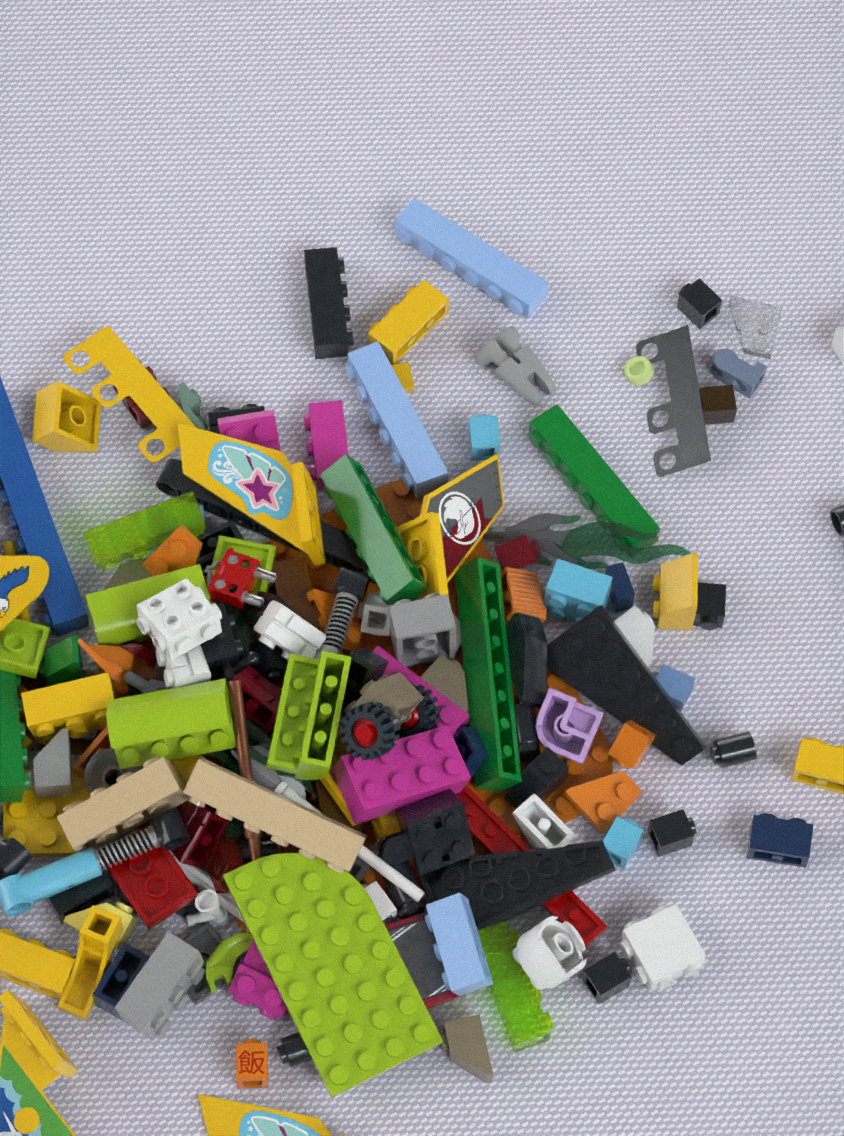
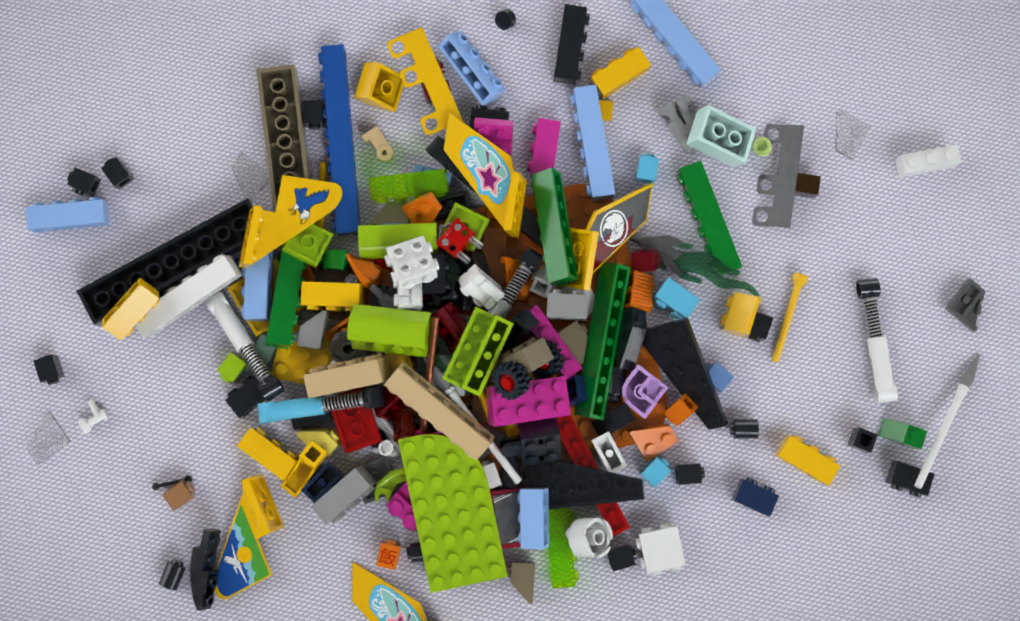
camera: 15 degrees right, 20 degrees up
(85, 495) = (382, 147): none -> tan leg
(190, 405) = (461, 99): sand green slope -> none
(194, 362) = (471, 68): none -> light blue brick
(224, 292) = (505, 19): none -> black wheel
(576, 364) = (721, 136): none -> light aqua brick
(621, 590) = (705, 294): dark blue piece -> none
(639, 631) = (706, 336): white slope -> none
(699, 303) = (816, 107): black brick -> none
(734, 371) = (825, 165): sand blue leg -> none
(748, 531) = (799, 281): none -> yellow piece

